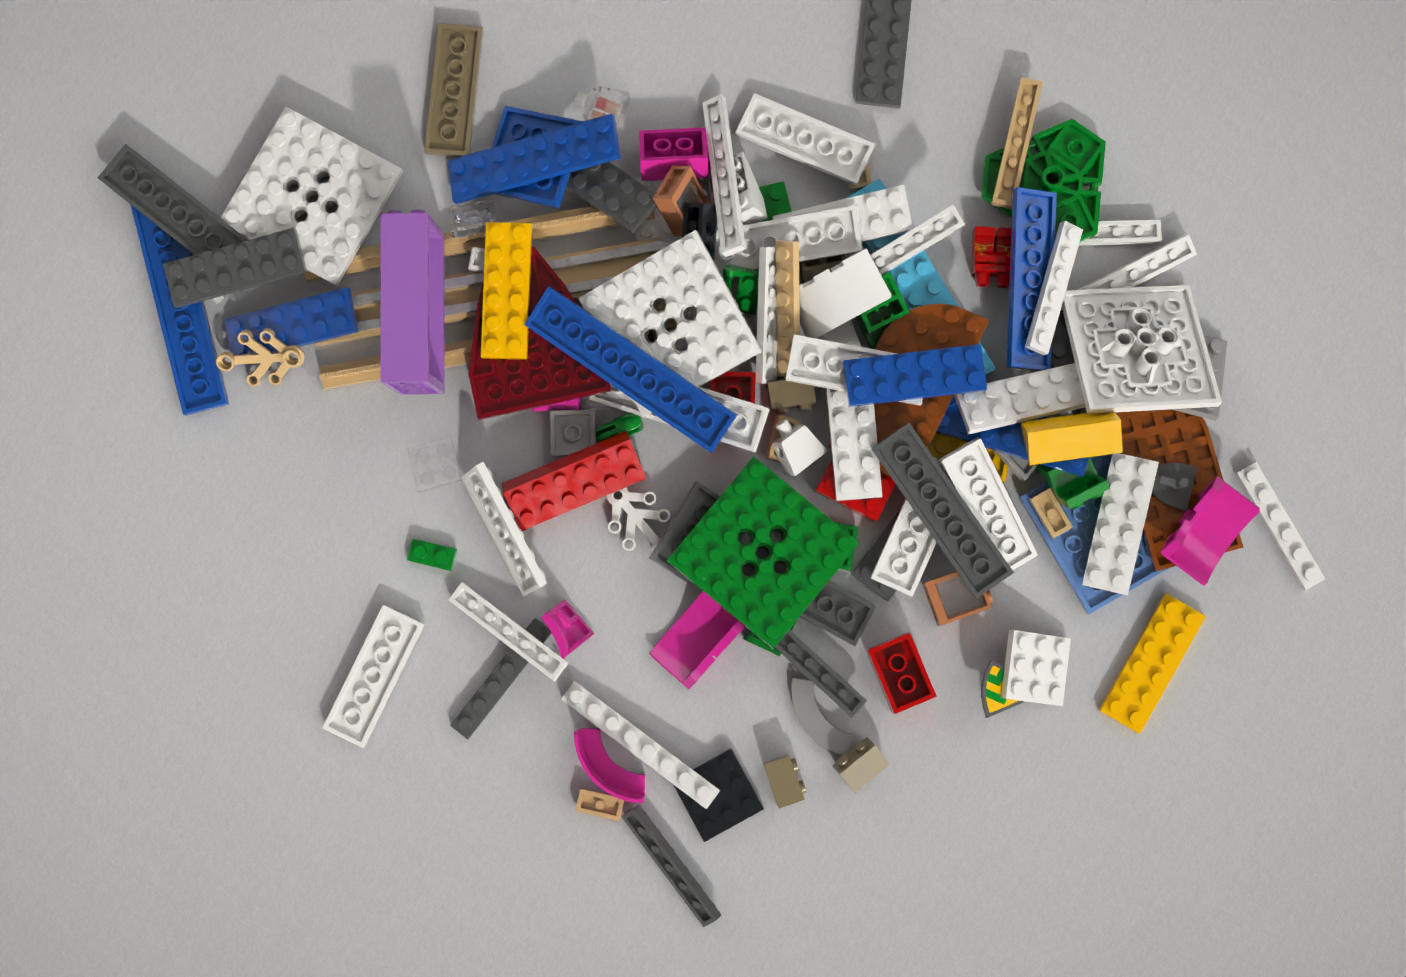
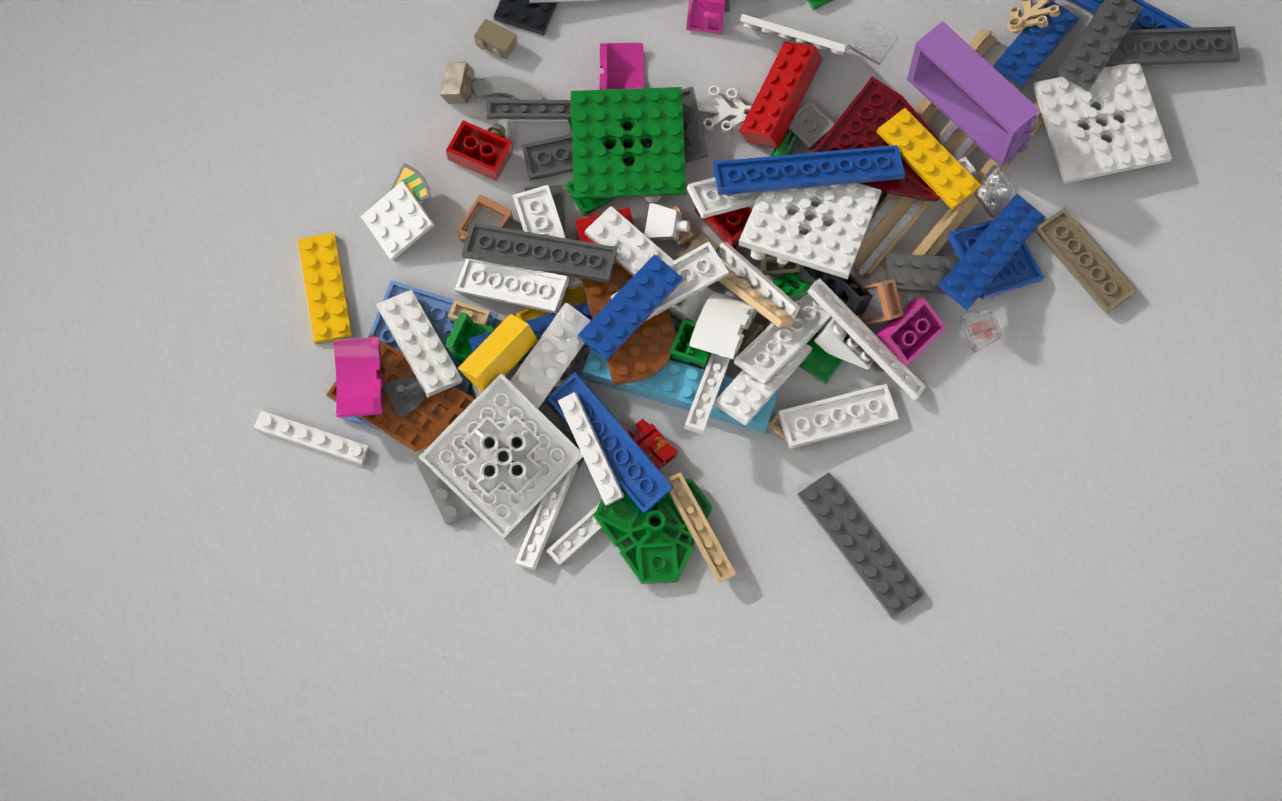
camera: 140 degrees right, 15 degrees down
(866, 681) = (497, 129): none -> dark tan plate

